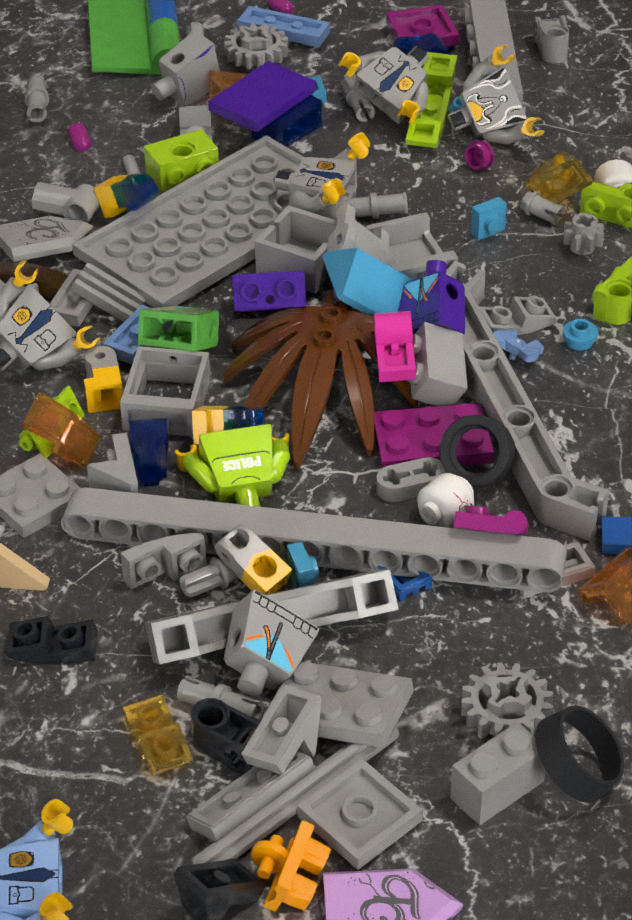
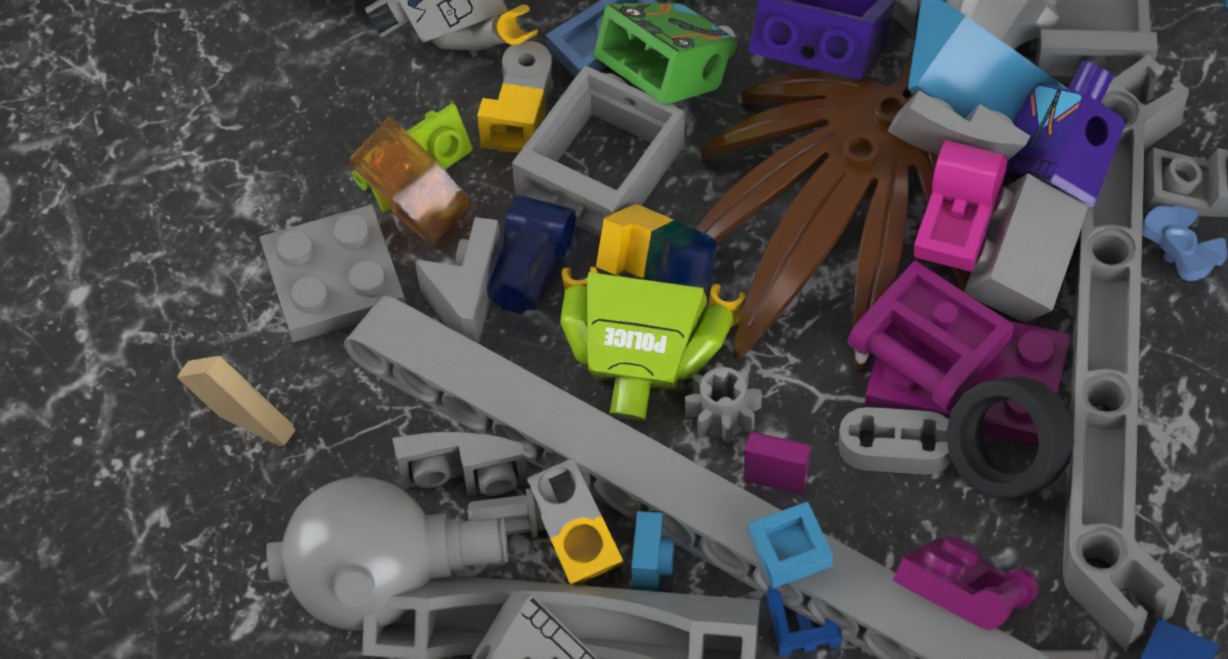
camera: 25 degrees right, 15 degrees up
(41, 642) = (231, 541): black slope -> none
(132, 605) = (370, 541): none -> light grey piece
(303, 487) = (723, 402): none -> light grey gear
(351, 502) = (777, 463): none -> magenta tile
(359, 309) = (931, 121): none -> light grey slope
(387, 527) = (790, 545): none -> dark azure plate
(408, 408) = (941, 320): none -> magenta plate
(443, 498) = (926, 504): white head -> none

